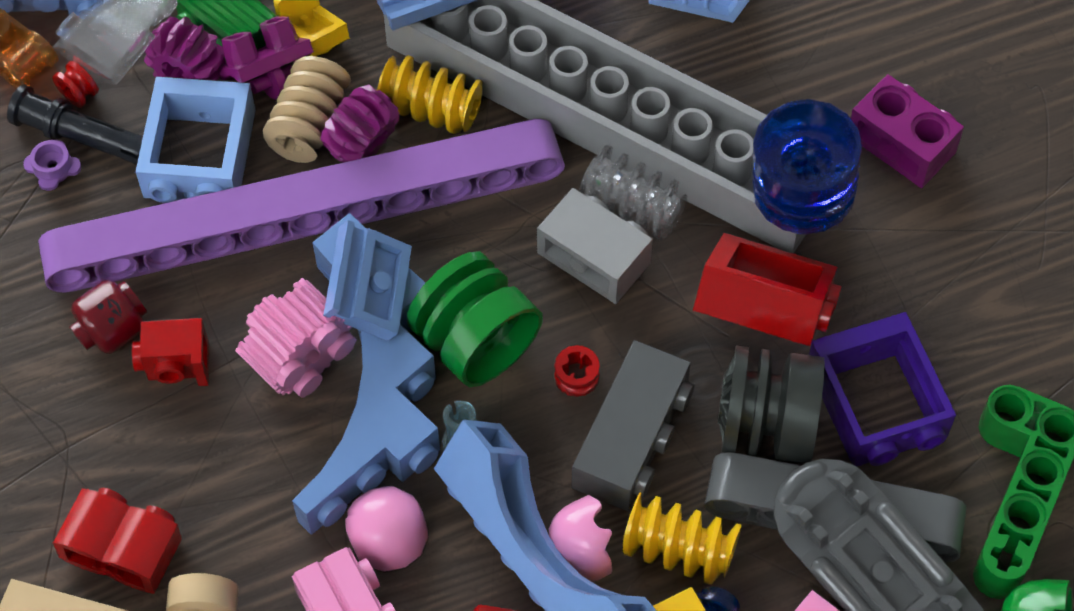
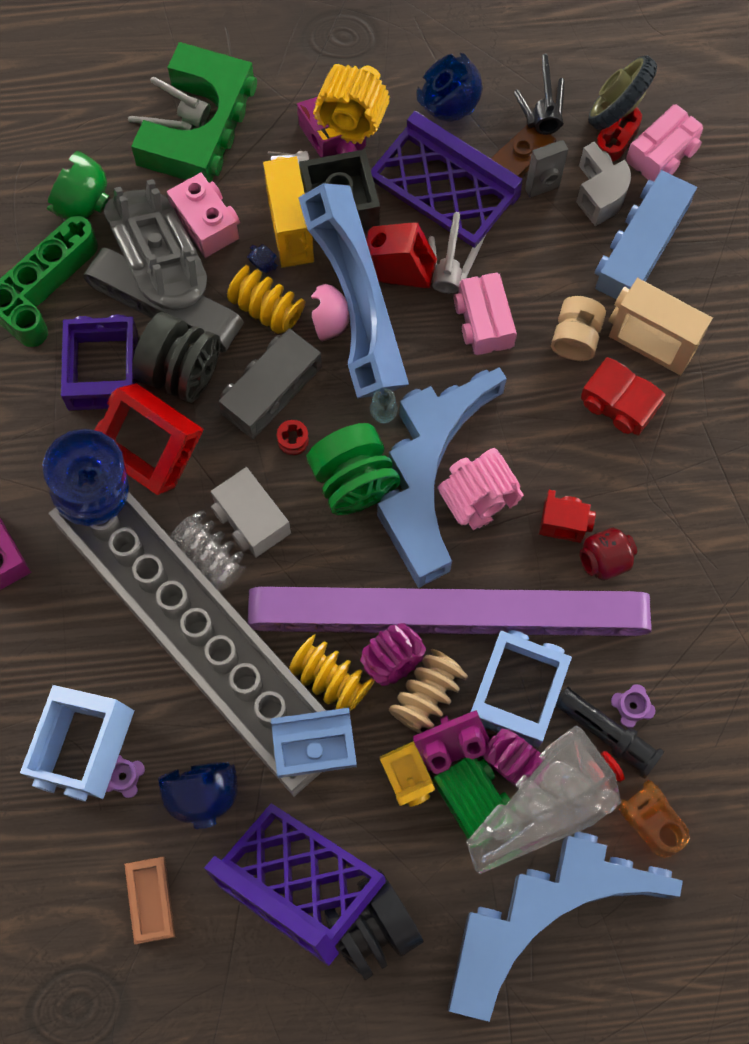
camera: 165 degrees left, 10 degrees up
(368, 280) = (421, 500): medium blue plate -> none
(386, 528) = (448, 365): bright pink hair -> none

